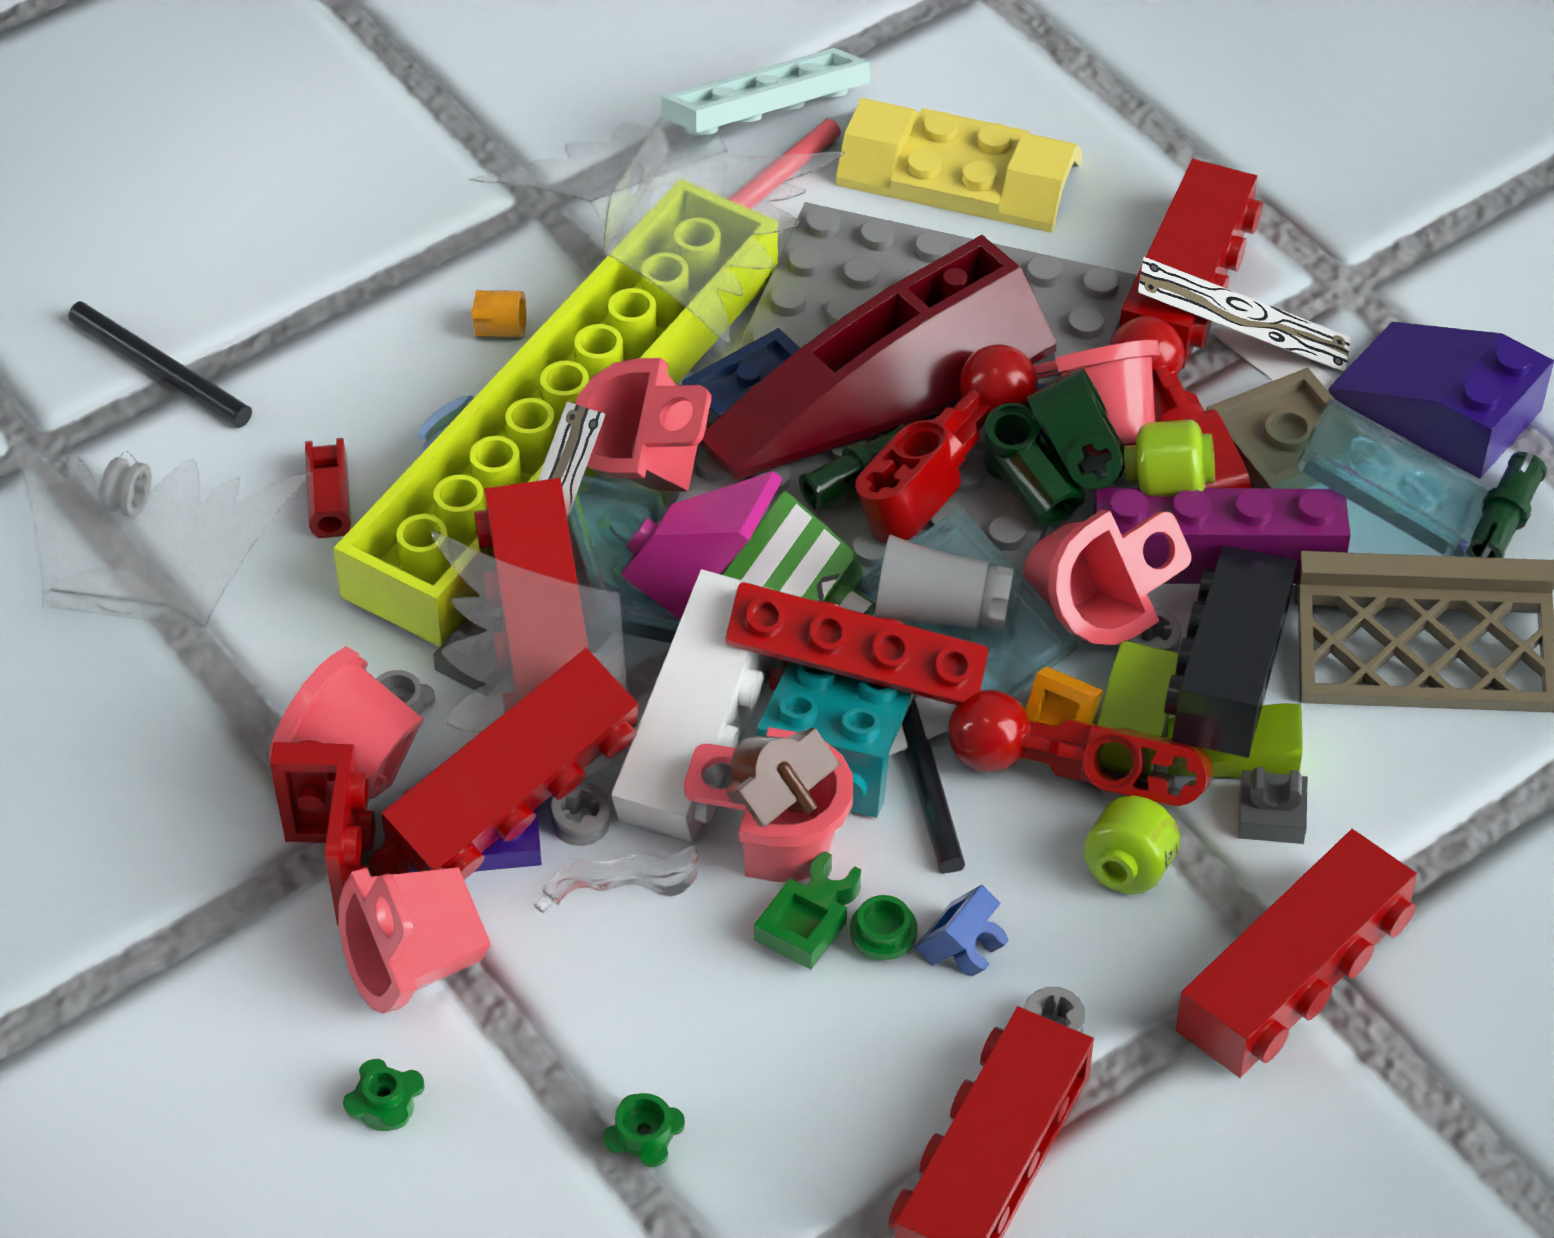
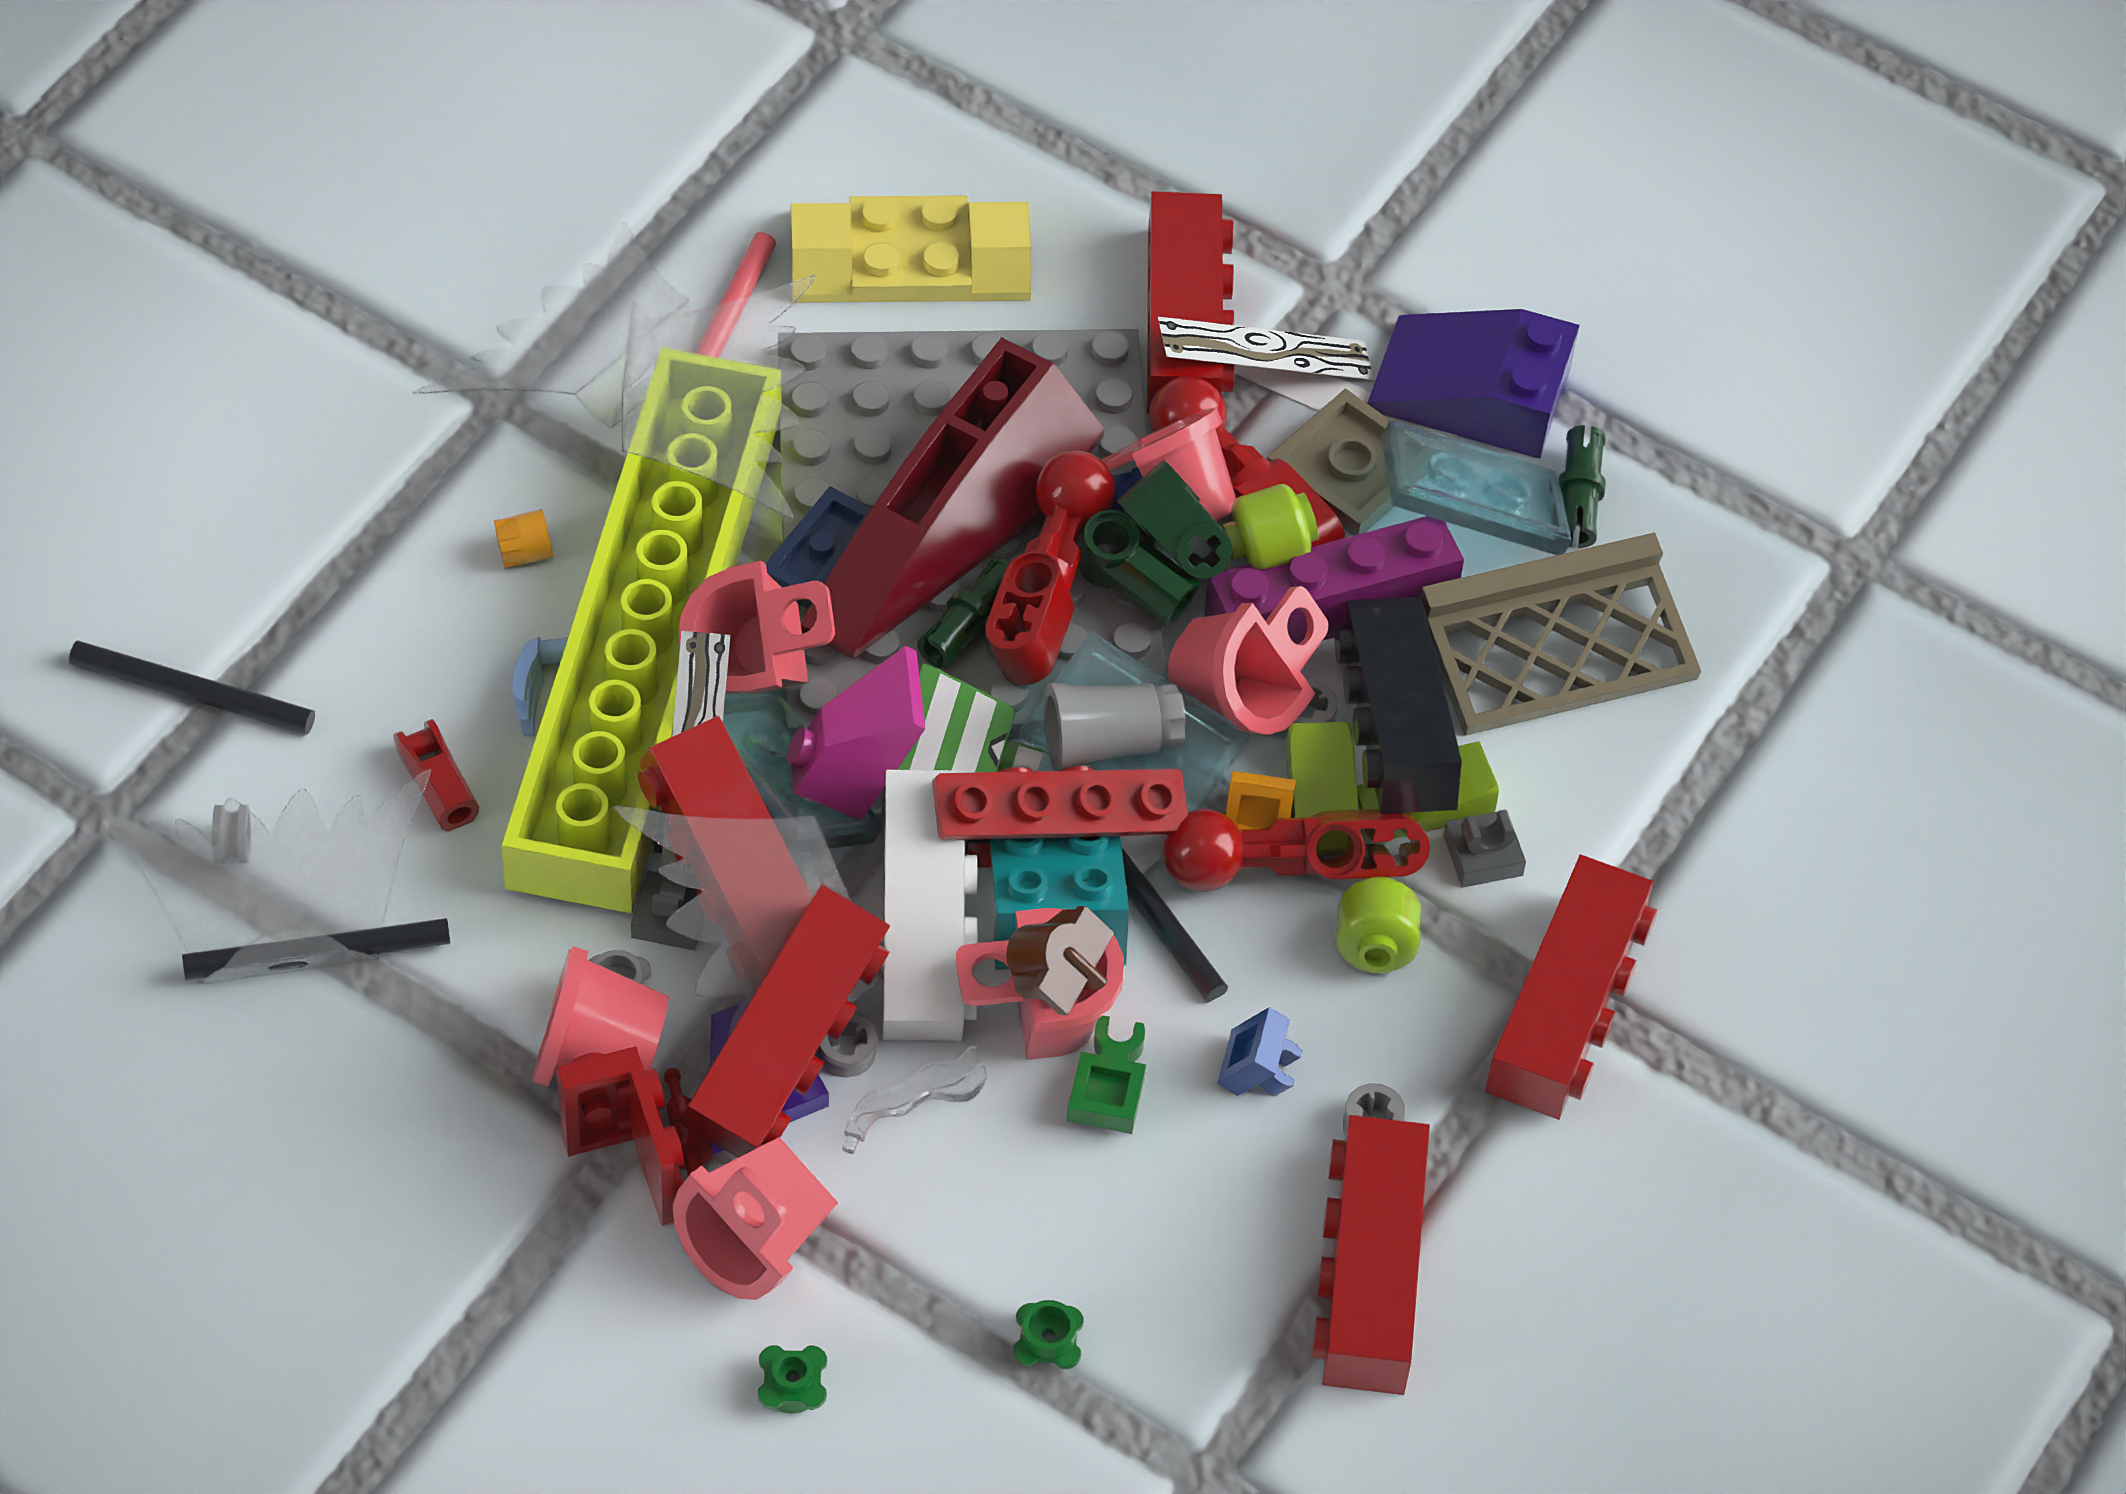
camera: 25 degrees left, 5 degrees up
(196, 606) = (368, 941): none -> black bar
(763, 90) = (690, 219): light aqua plate -> none
(883, 928) = (1183, 1074): green plate -> none

